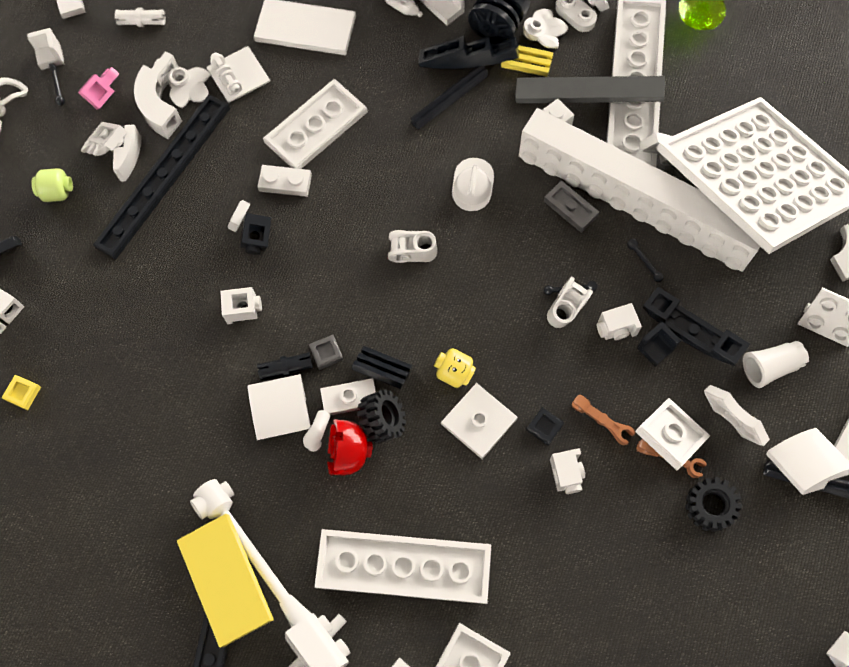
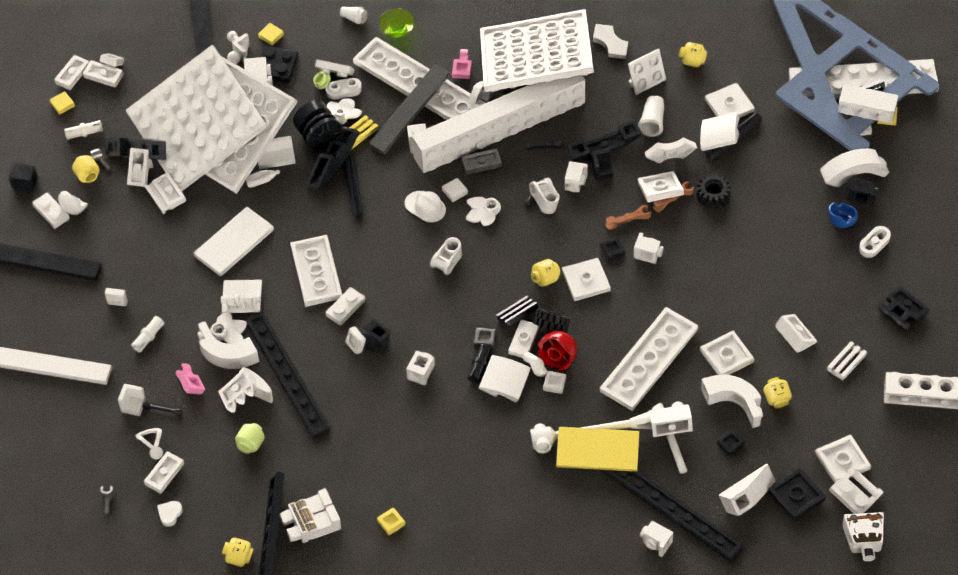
camera: 60 degrees left, 15 degrees down
(308, 468) = (554, 382): none -> white tile
(501, 246) = (481, 210): none -> white plate
(514, 201) = (454, 190): none -> white tile
(692, 110) = (462, 66): none -> bright pink plate

